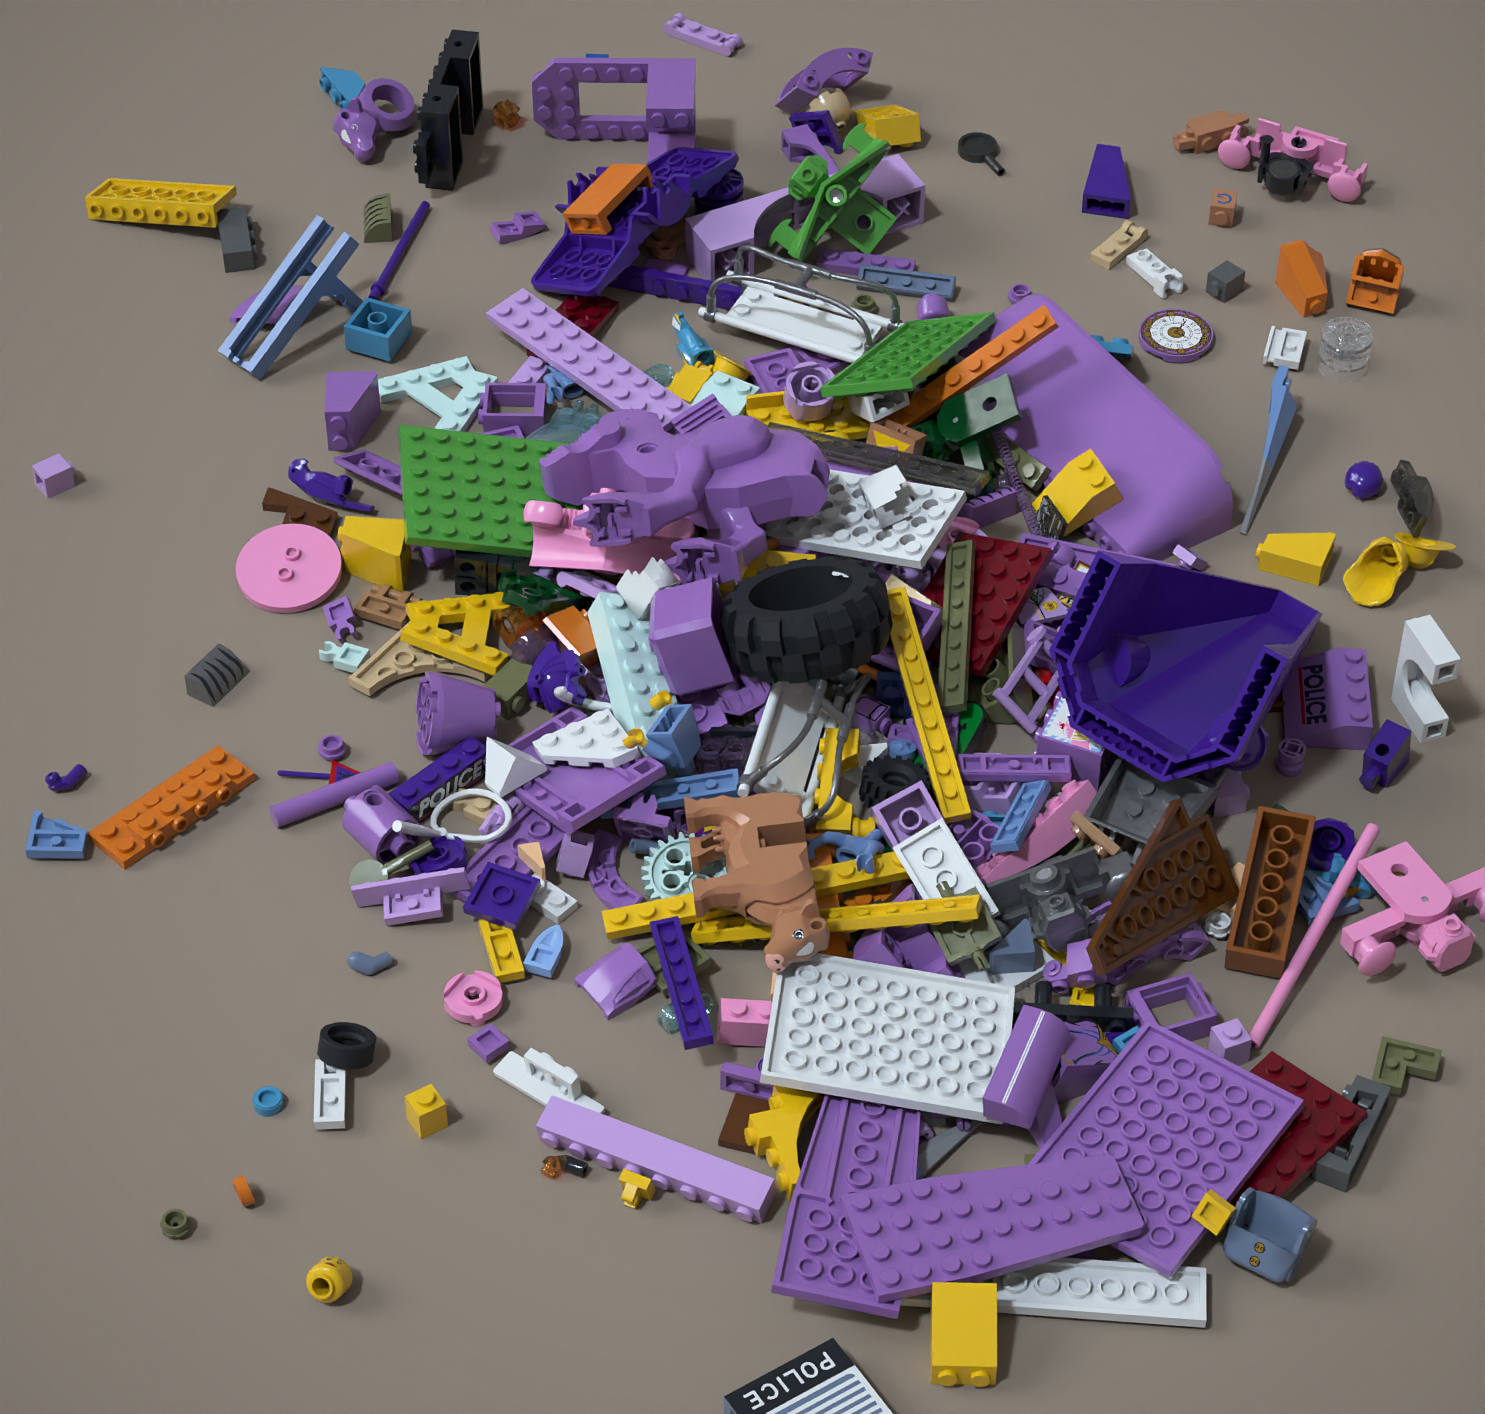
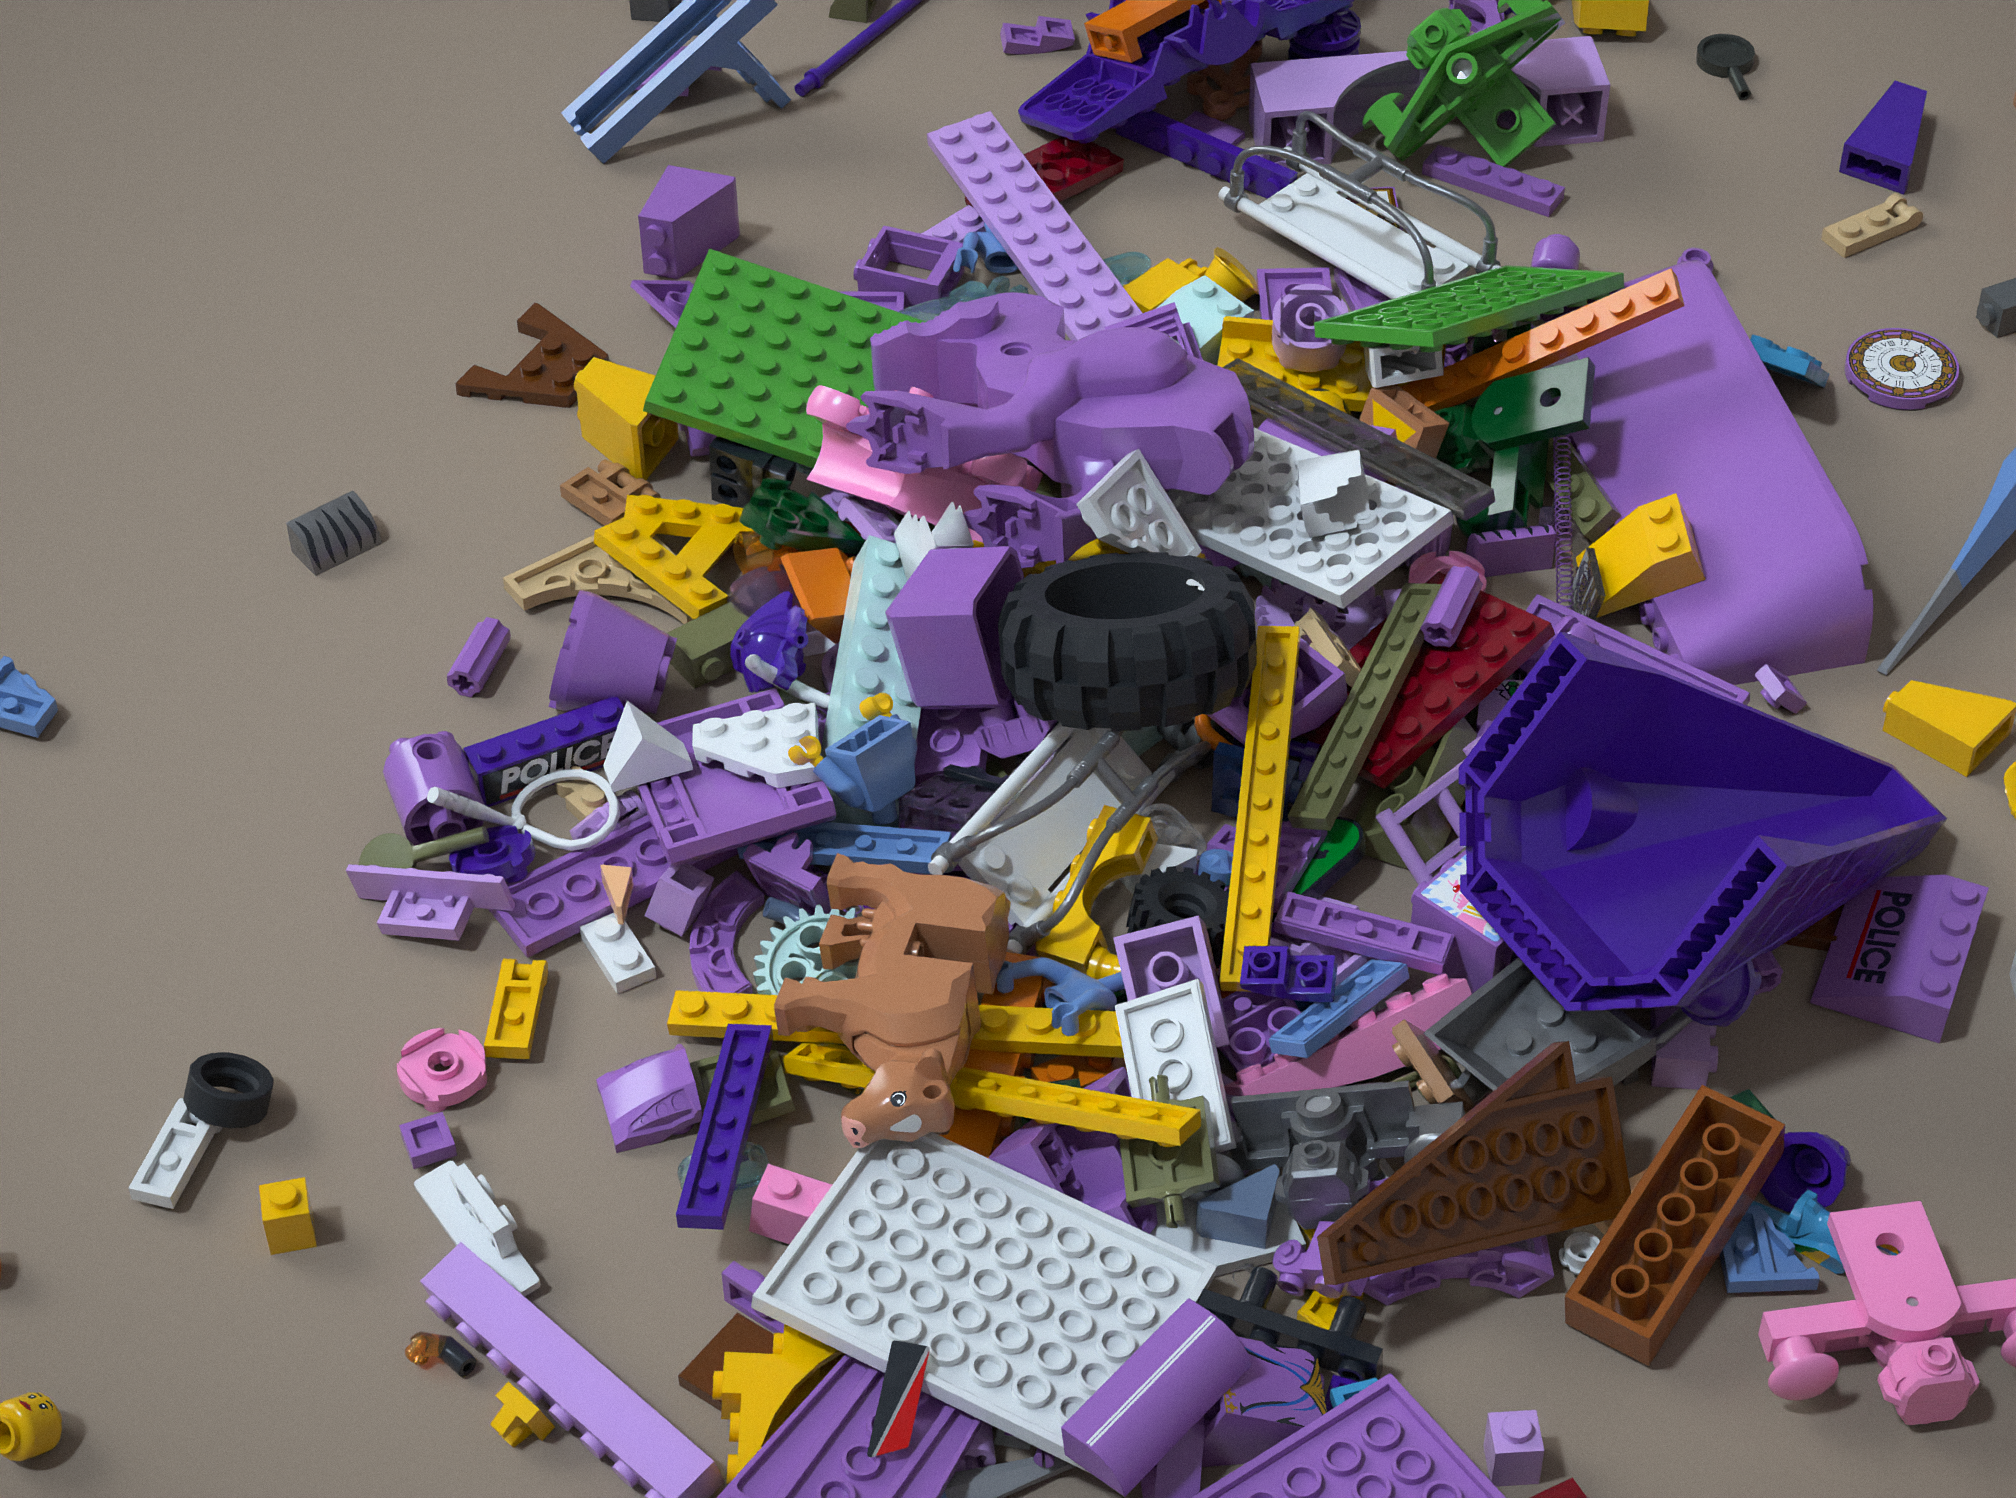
camera: 20 degrees right, 0 degrees up
(53, 475) = (272, 227): lavender brick -> none
(66, 782) = (72, 629): dark purple arm -> none
(171, 807) = (187, 696): orange plate -> none
(268, 1101) = (92, 1140): dark azure tile -> none
(288, 568) = (503, 413): bright pink plate -> none
(324, 486) = (607, 316): dark purple animal -> none
(331, 747) = (434, 666): medium lavender plate -> none
(332, 794) = (379, 734): medium lavender piece -> none
(337, 773) = (429, 711): dark purple piece -> none
(340, 618) = (536, 493): medium lavender plate -> none
(346, 658) = (516, 550): light aqua plate -> none
(358, 734) = (478, 657): none -> medium lavender axle
(367, 964) = (326, 982): sand blue arm -> none
(378, 329) = (780, 128): dark azure brick -> none
(423, 385) = (804, 218): light aqua plate -> none
(502, 896) = (545, 932): dark purple plate -> none
(545, 952) = (571, 1030): light blue plate -> none
(691, 346) = (1193, 237): dark azure animal -> none
(775, 537) = (1135, 512): none -> white plate
(865, 303) = (1464, 231): olive plate -> none
(872, 1110) = (898, 1398): none -> sticker
(873, 714) = (1198, 803): medium lavender brick -> none
(908, 282) = (1539, 214): sand blue tile -> none
(984, 552) = (1451, 606): none -> medium lavender axle
(986, 804) = (1288, 976): none -> dark purple slope
(1155, 272) = (1909, 274): white plate -> none
(1170, 991) = (1451, 1337): medium lavender window -> none
(1290, 757) = (1807, 1023): medium lavender wheel -> none
(1312, 936) = (1714, 1314): bright pink piece -> none
(1386, 755) = (1955, 1059): dark purple torso -> none

